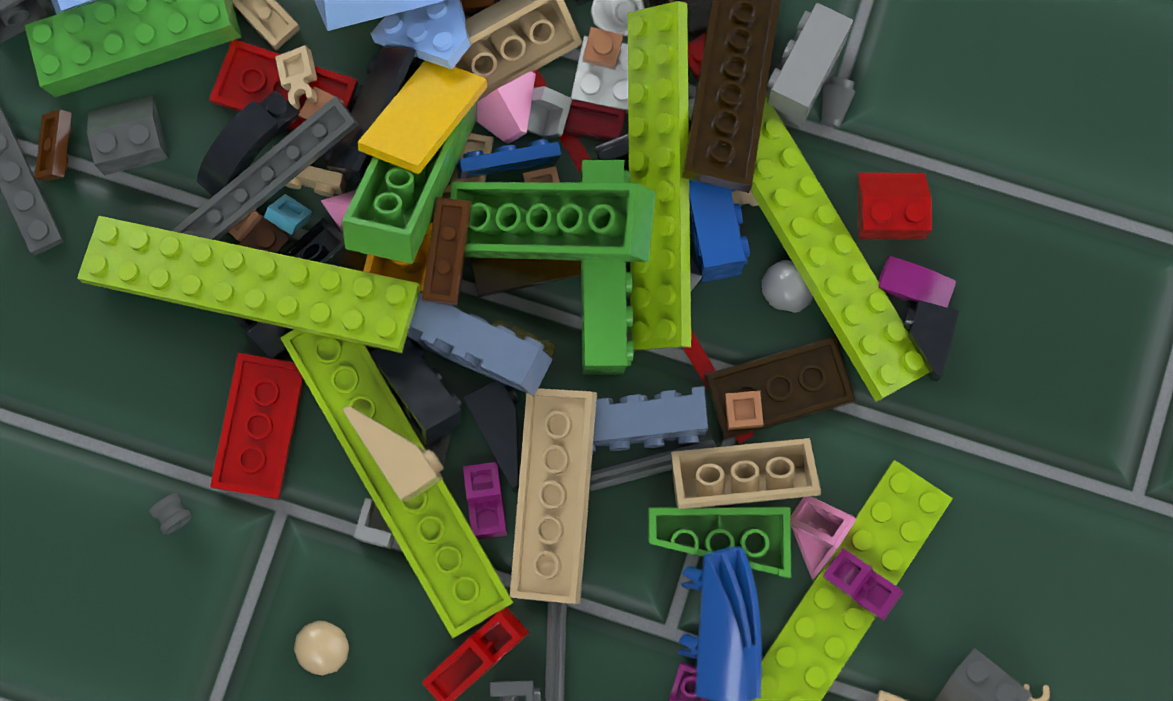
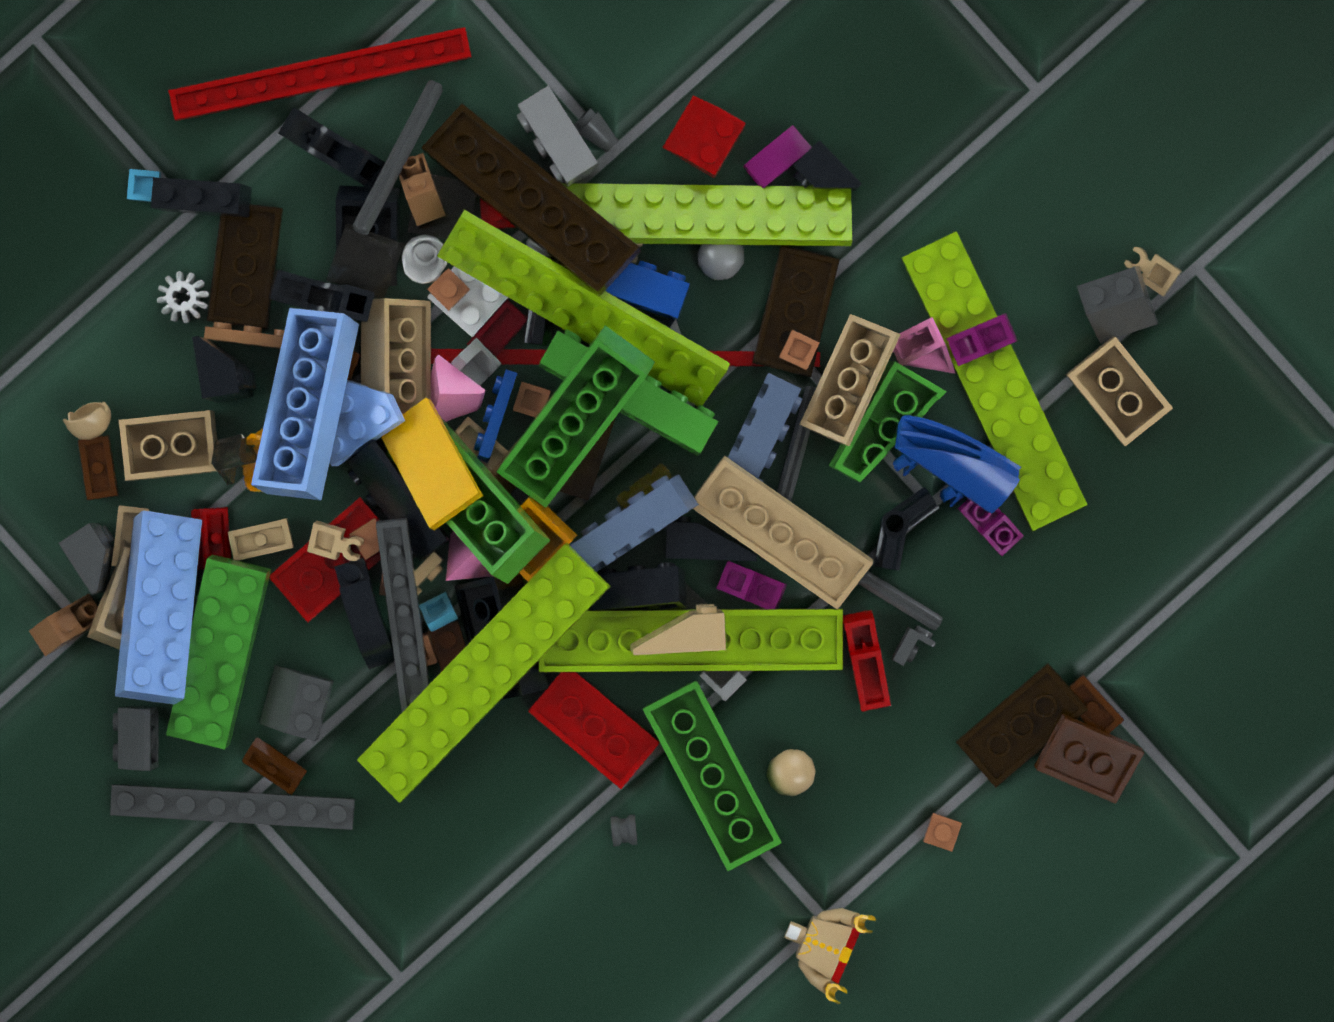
camera: 60 degrees left, 10 degrees up
(272, 569) = (712, 775): none -> bright green brick
(446, 251) = (551, 507): reddish brown tile -> none
(650, 616) = (911, 511): none -> black piece

